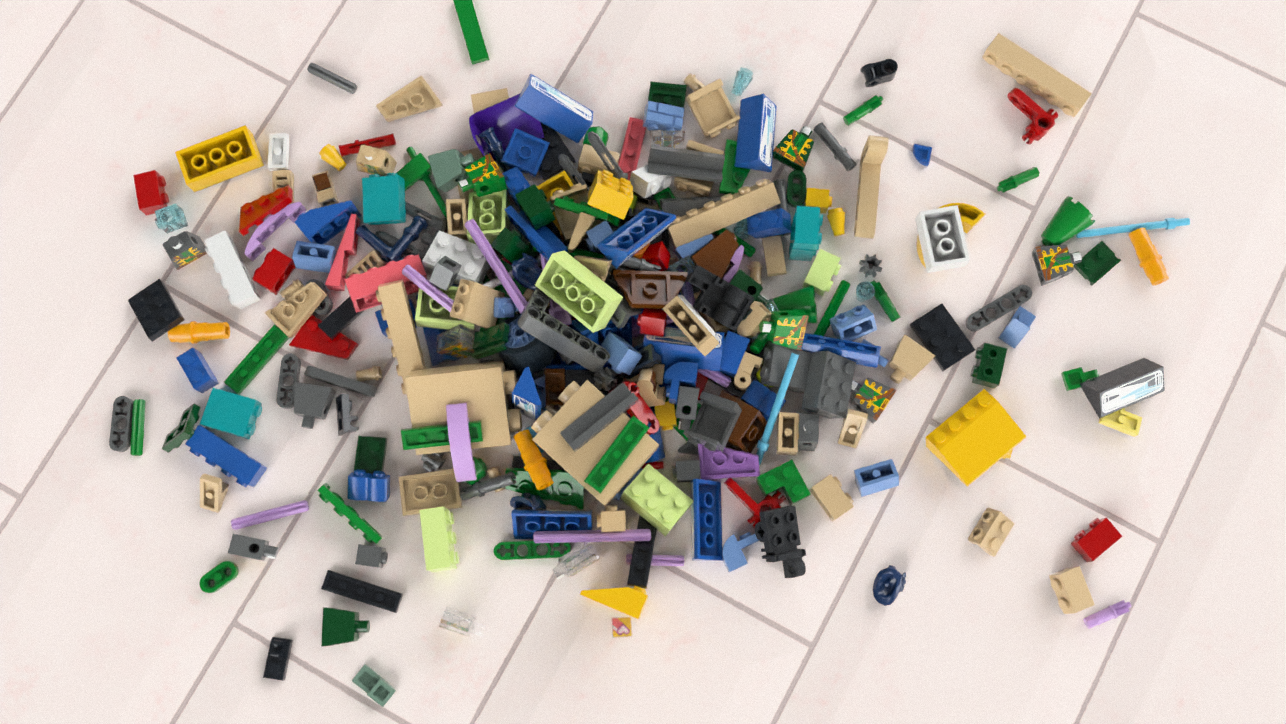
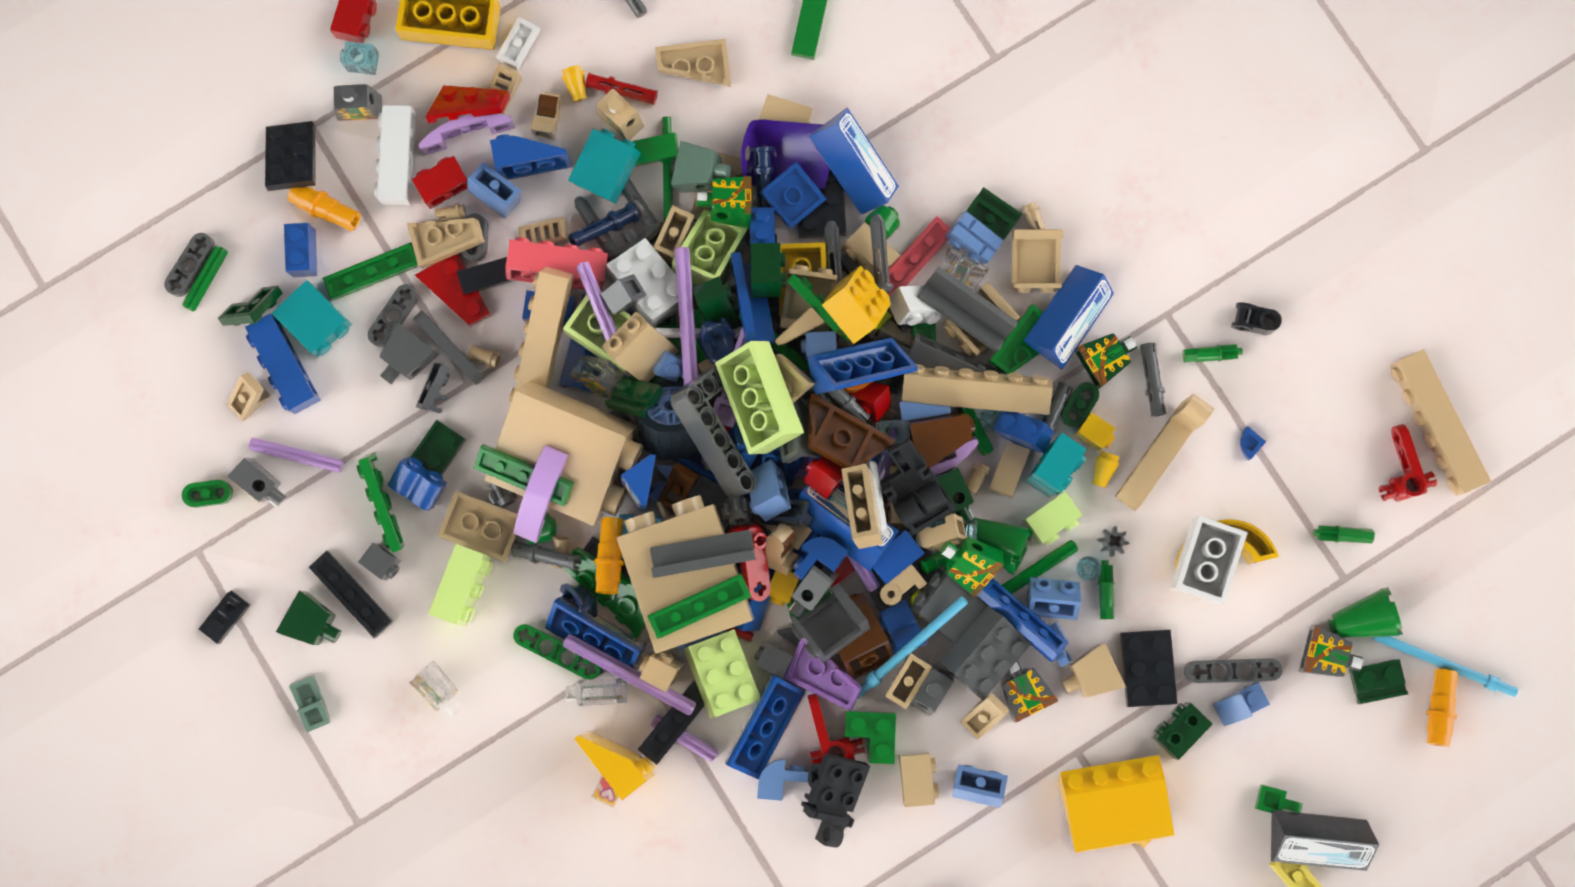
camera: 30 degrees right, 5 degrees up
(347, 247) = (538, 196): coral slope -> none
(375, 242) = (571, 211): dark blue pin -> none
(742, 80) = (1089, 243): clear light blue cone -> none

